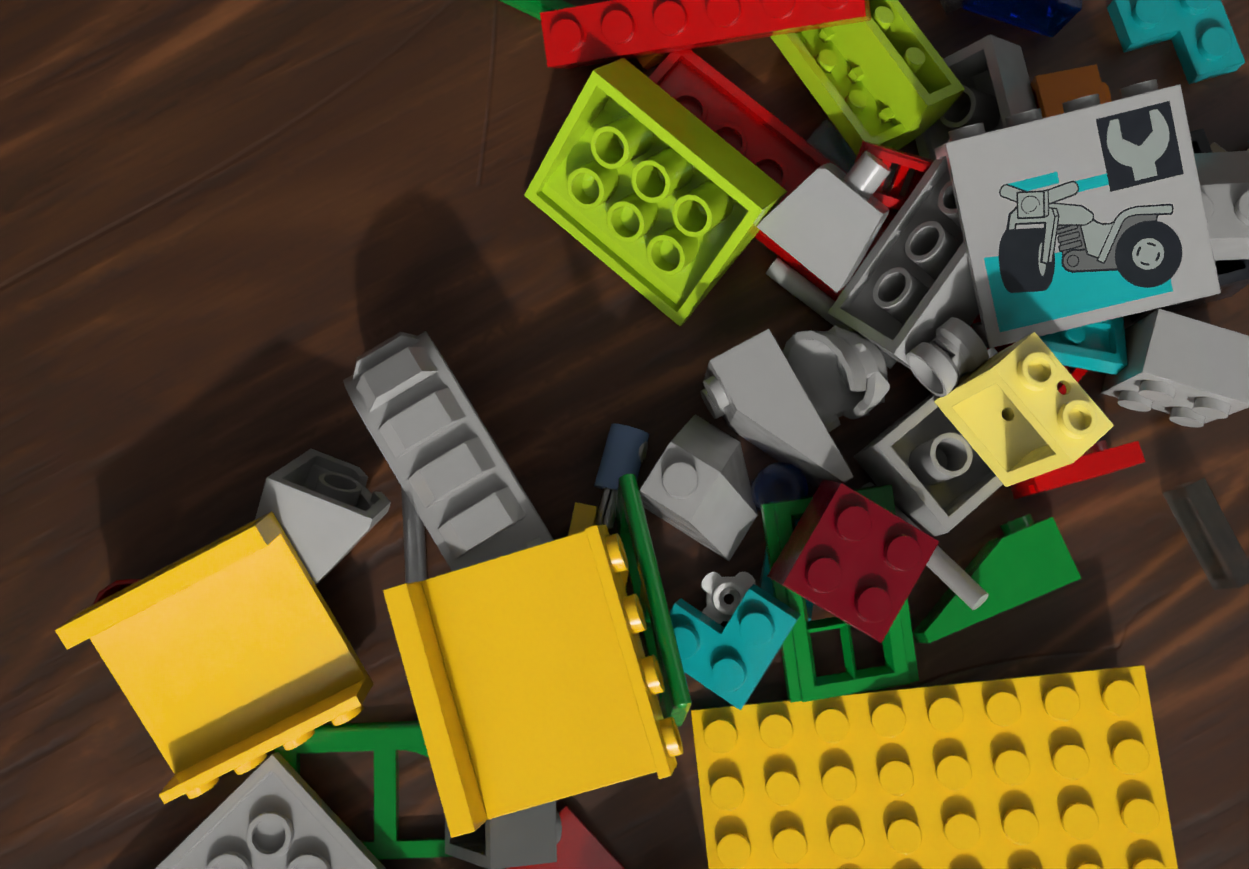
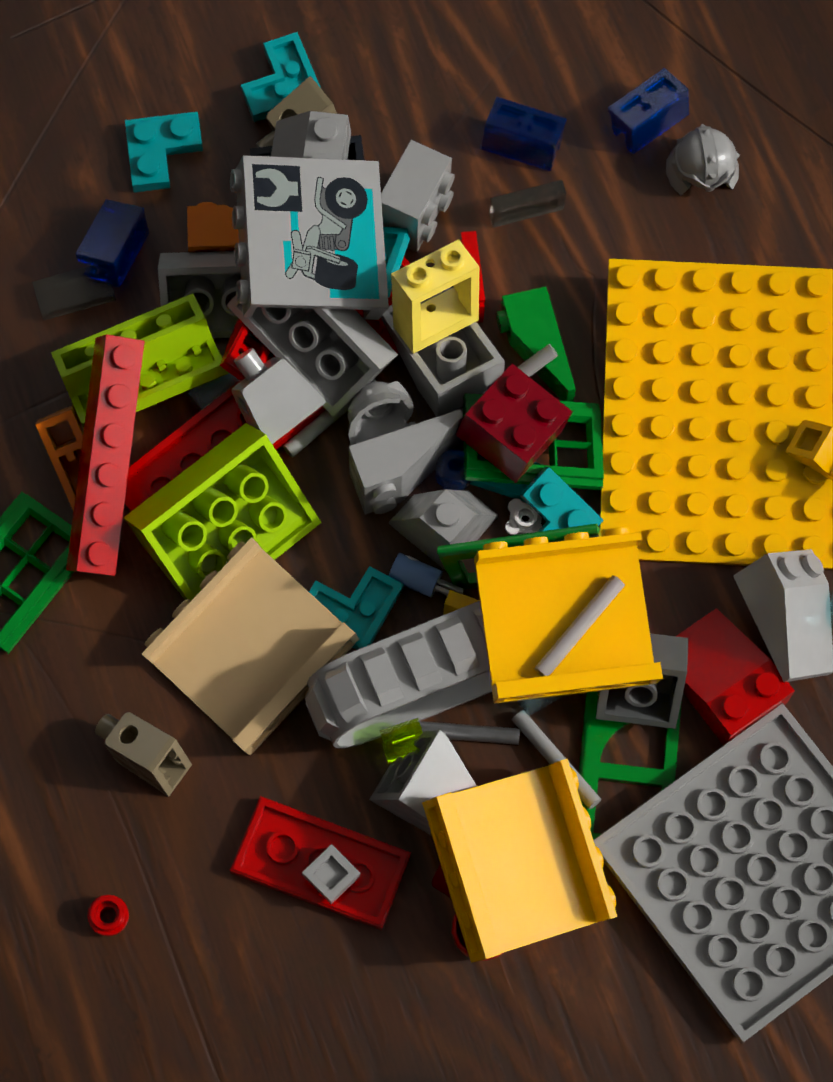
camera: 85 degrees left, 10 degrees down
(114, 138) = (104, 903): none -> red plate
(186, 411) = (331, 874): none -> light grey plate
(217, 400) = (286, 841): none -> red tile
(321, 149) = (144, 750): none -> dark tan torso
(373, 705) = (553, 755): none -> light grey bar
(382, 477) = (400, 739): none -> clear neon green tile
(489, 259) = (248, 645): none -> tan panel
(523, 698) = (579, 626): none -> light grey bar
(546, 385) = (366, 607): none -> teal plate
(947, 356) = (388, 336): light grey wheel -> none

